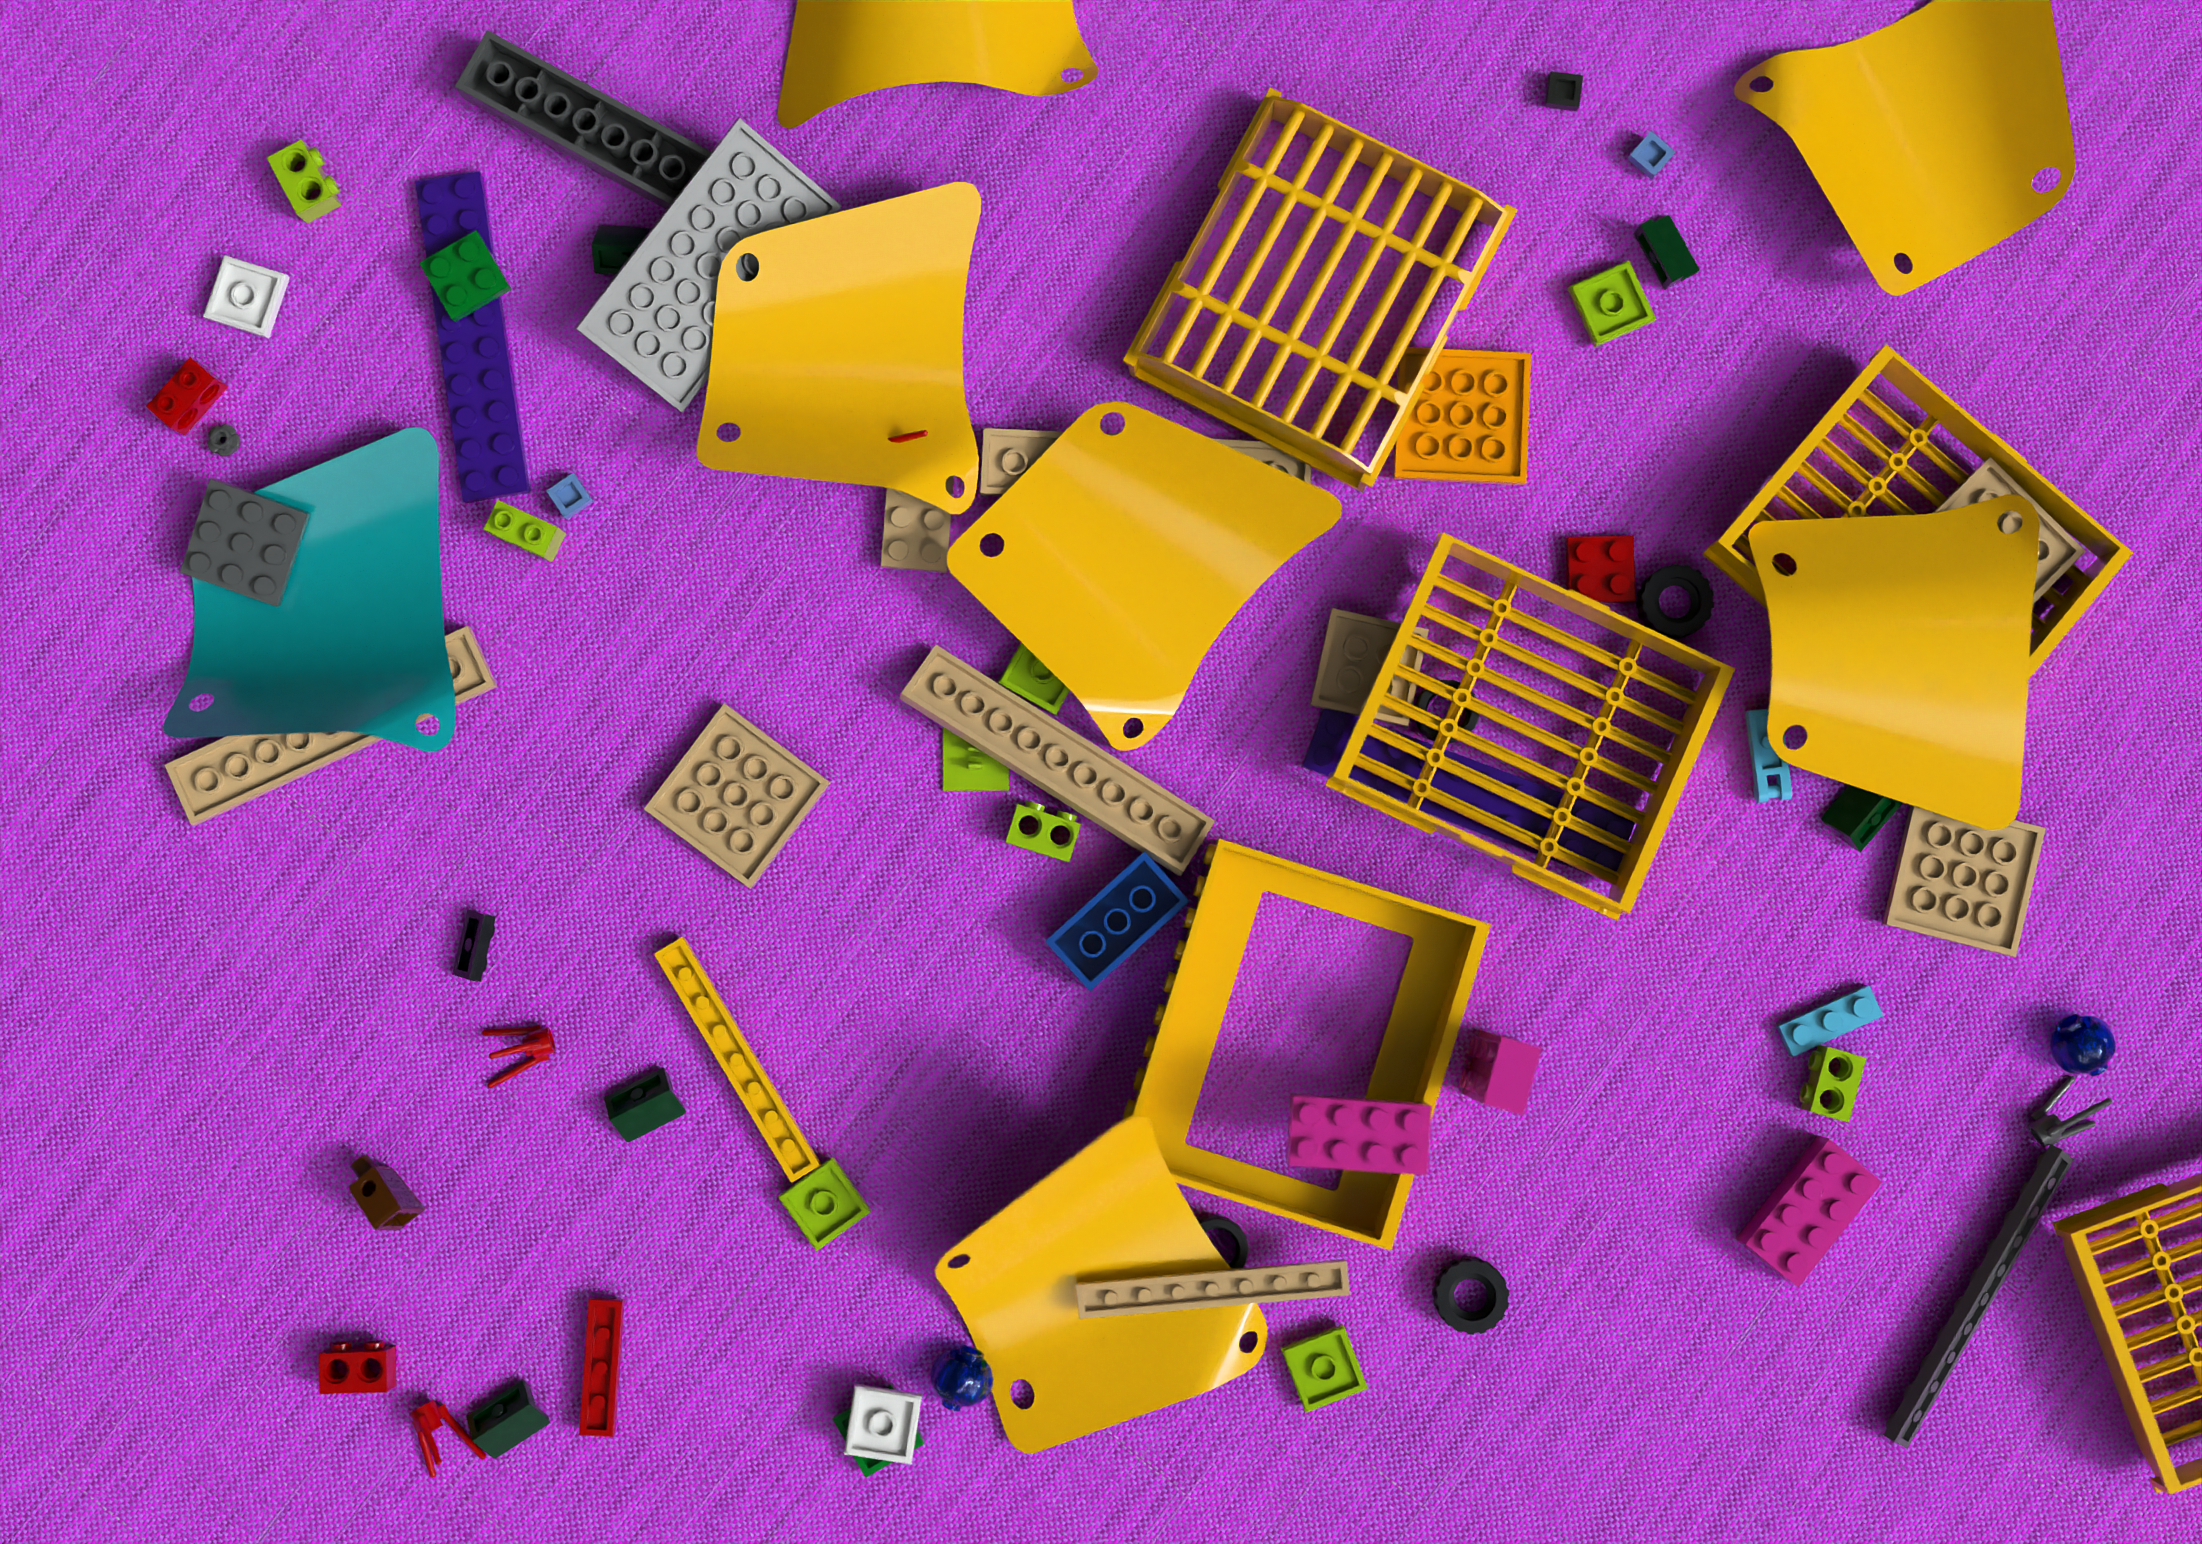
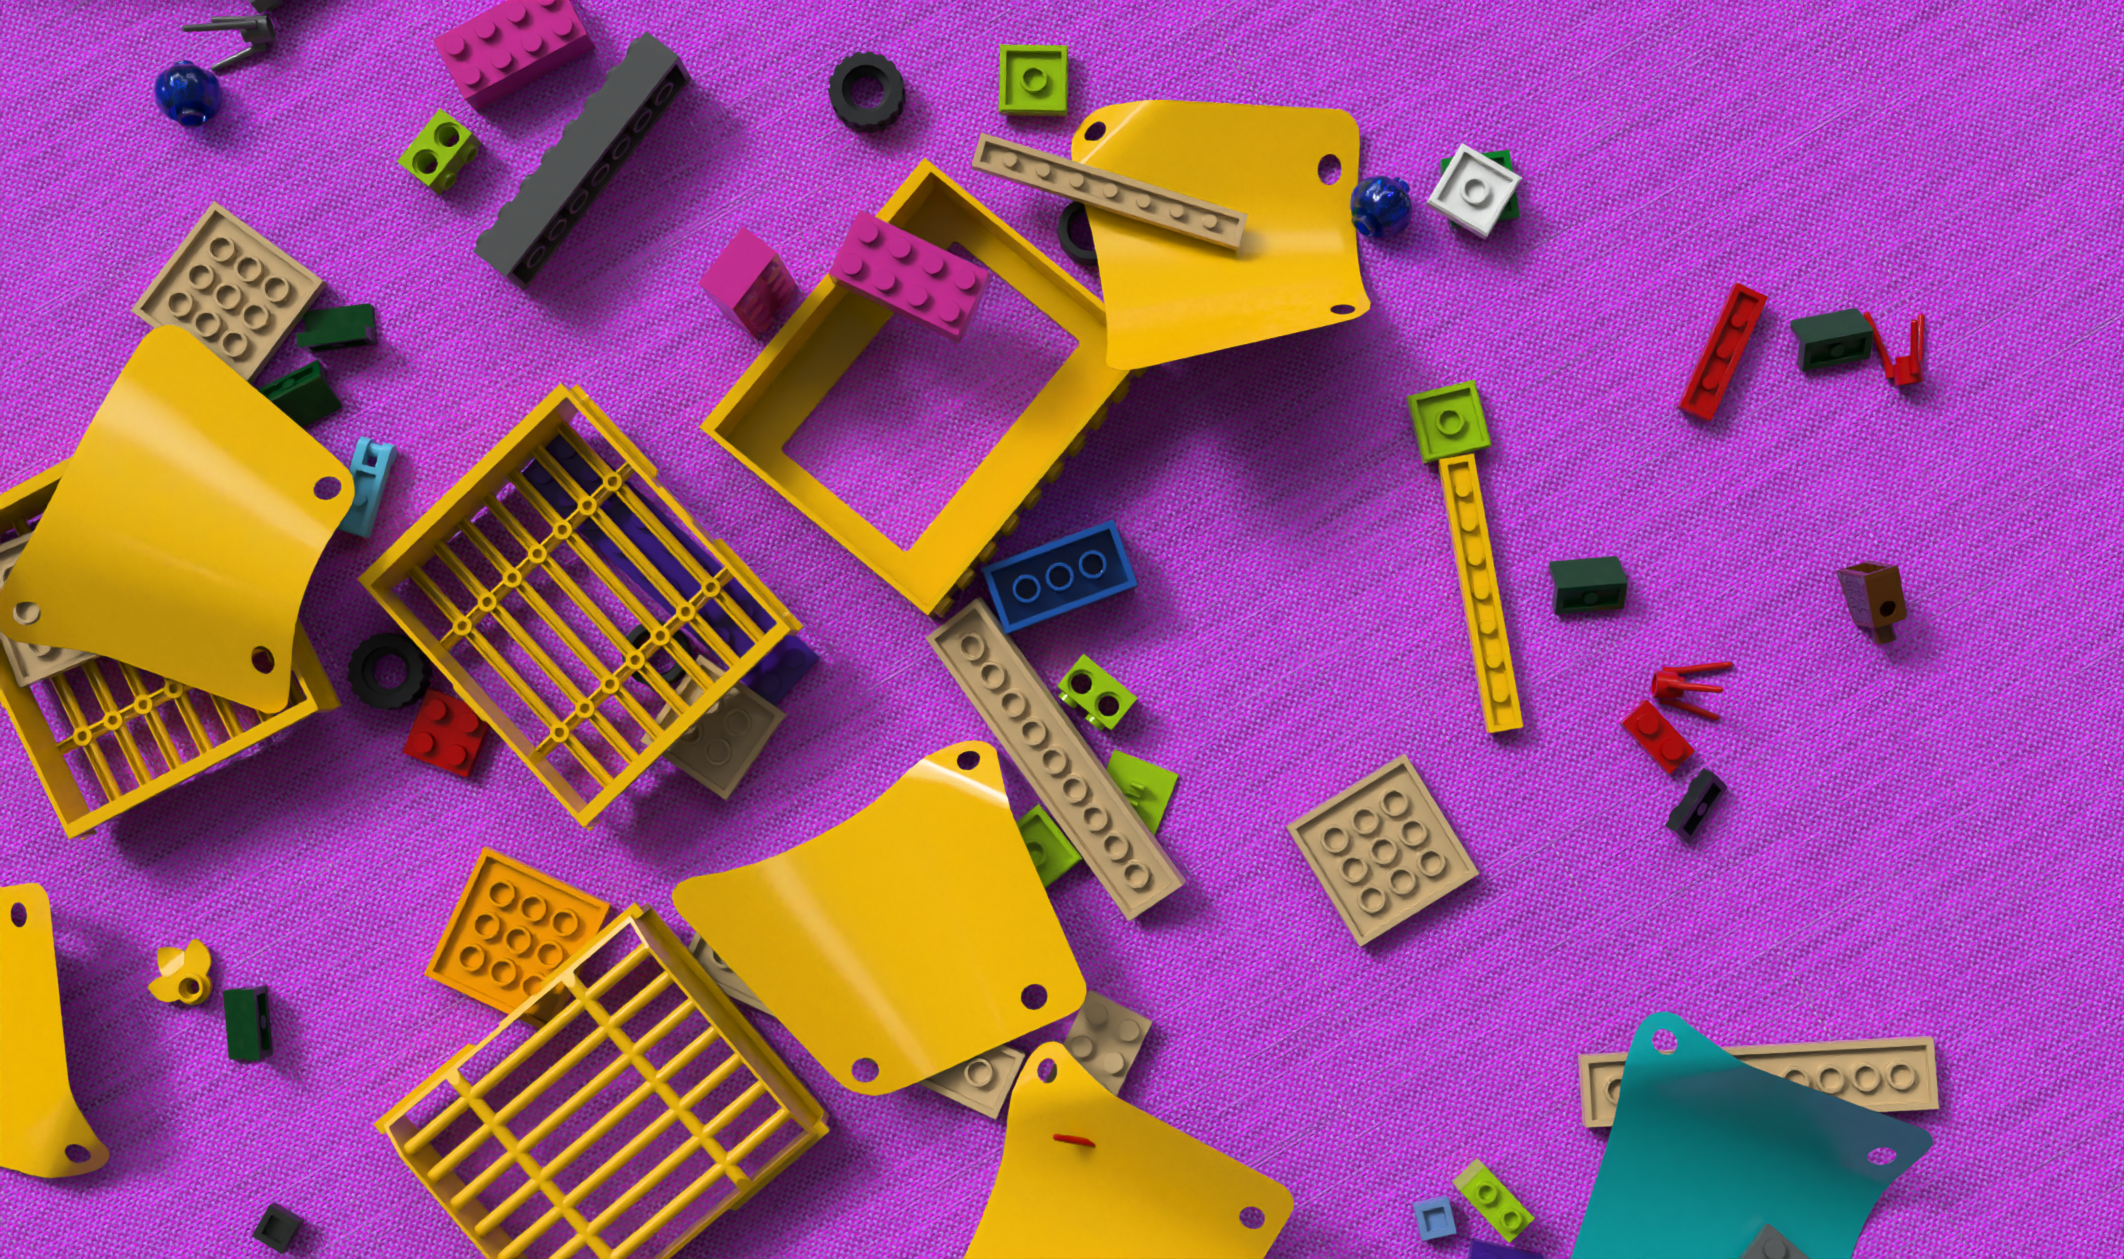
camera: 150 degrees left, 0 degrees up
(358, 1375) = (1959, 436): red brick -> none
(531, 993) = (1656, 737): none -> red plate
(1611, 304) = (324, 991): lime plate -> none
(1651, 155) = (219, 1126): medium blue plate -> none
(1699, 1126) = (583, 161): none -> dark grey brick
(1745, 270) = (179, 970): none -> yellow plate
(1829, 1020) = (418, 212): medium azure plate -> none
(1854, 887) = (338, 328): none -> dark green panel

